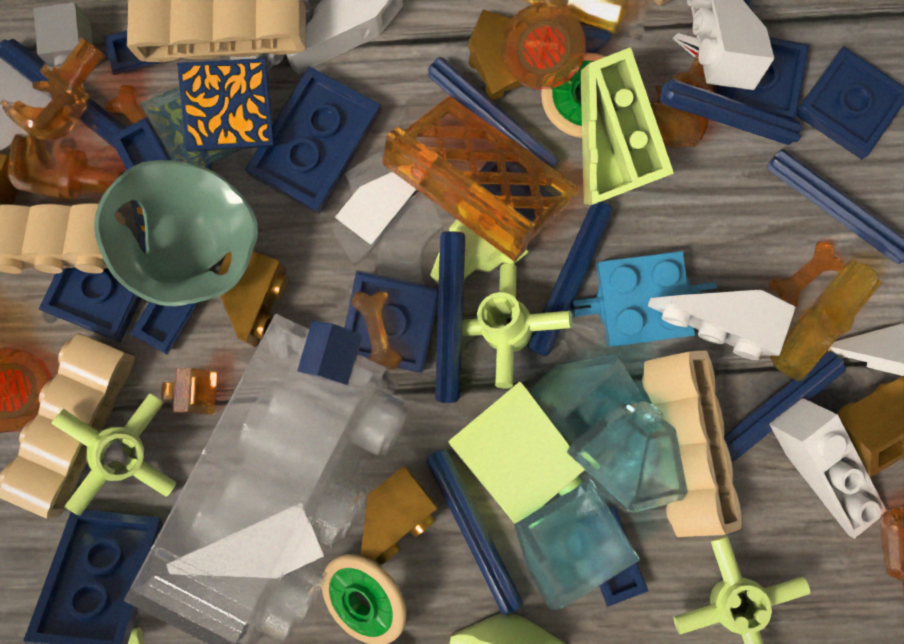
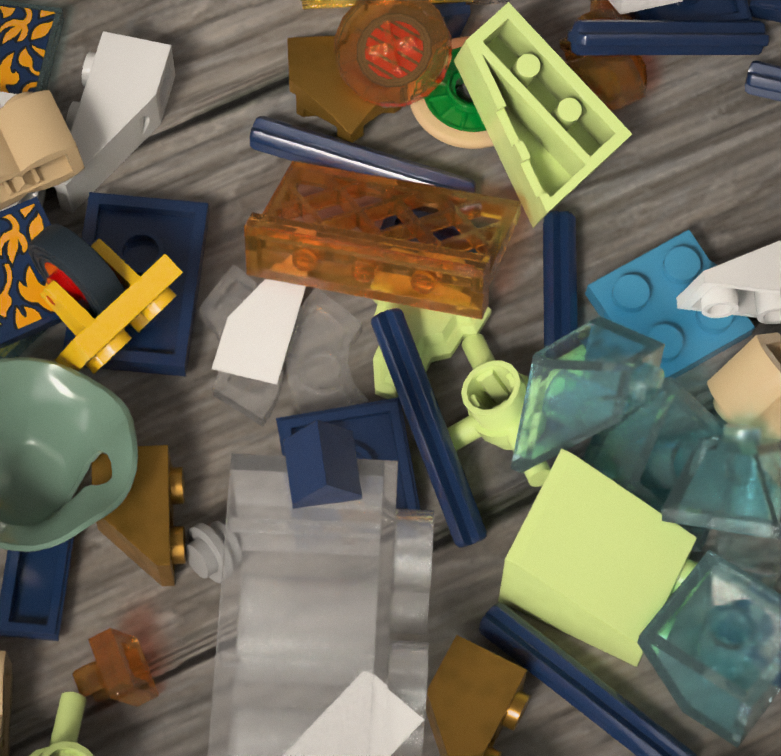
camera: 25 degrees left, 15 degrees down
(262, 129) = (97, 293): none -> yellow plate
(556, 346) = (584, 388): none -> clear light blue slope

